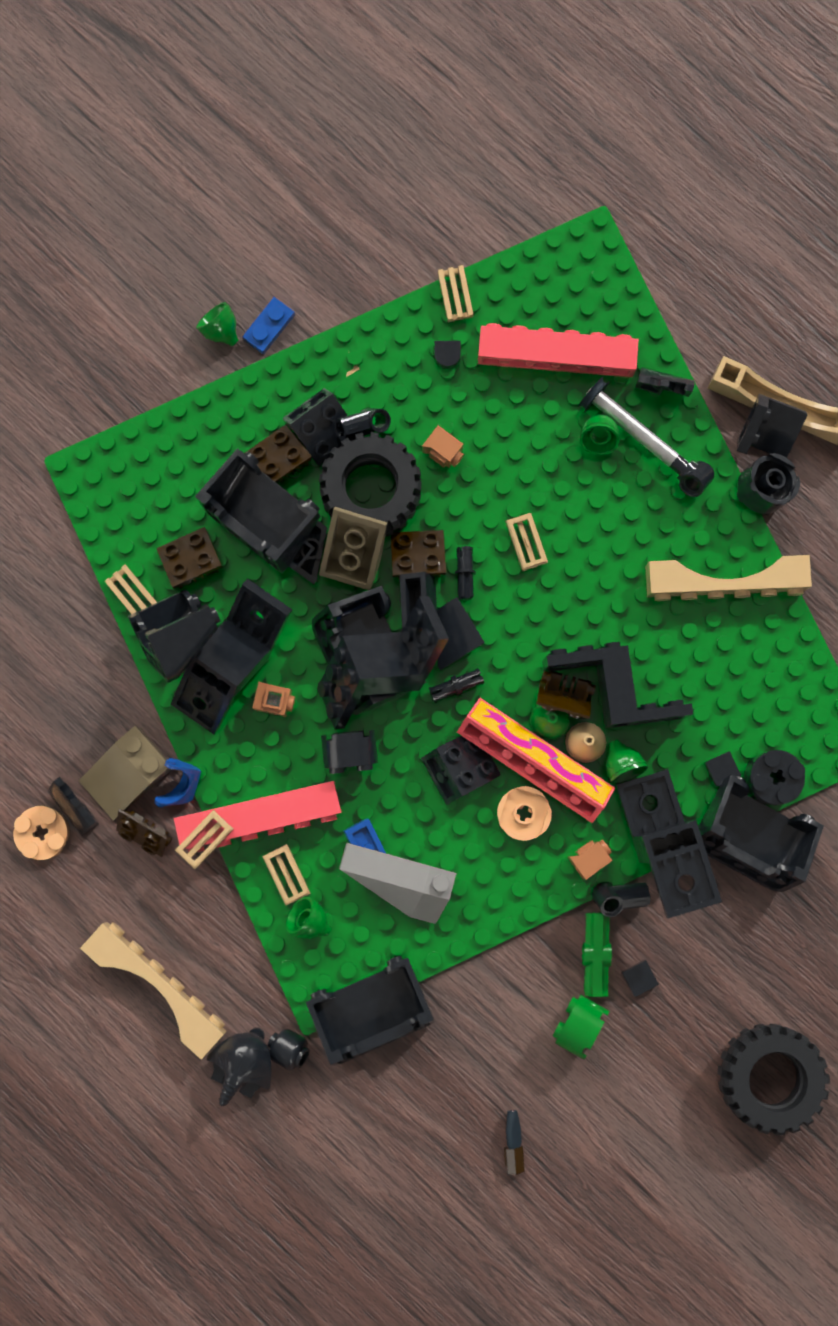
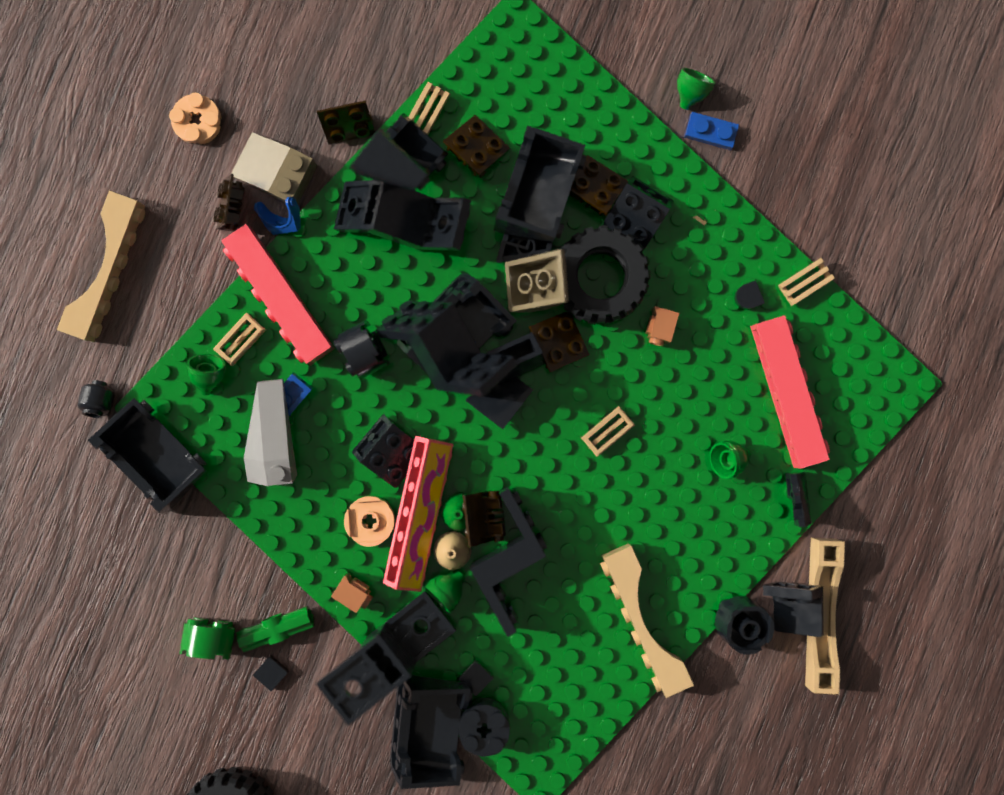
camera: 75 degrees right, 5 degrees up
(72, 807) = (223, 142): black slope -> none
(112, 678) = (346, 122): none -> dark brown hinge
(188, 856) = (256, 264): tan tile -> none
(241, 1061) = (67, 365): black piece -> none
(273, 699) = (382, 267): nougat window -> none
(362, 423) = (653, 245): black piece -> none
(456, 685) = (457, 419): black pin -> none
(465, 572) = (558, 388): black axle -> none
(514, 1151) = (87, 620): piece -> none
(614, 899) = (326, 626): black piece -> none
(692, 477) = (724, 556): piece -> none

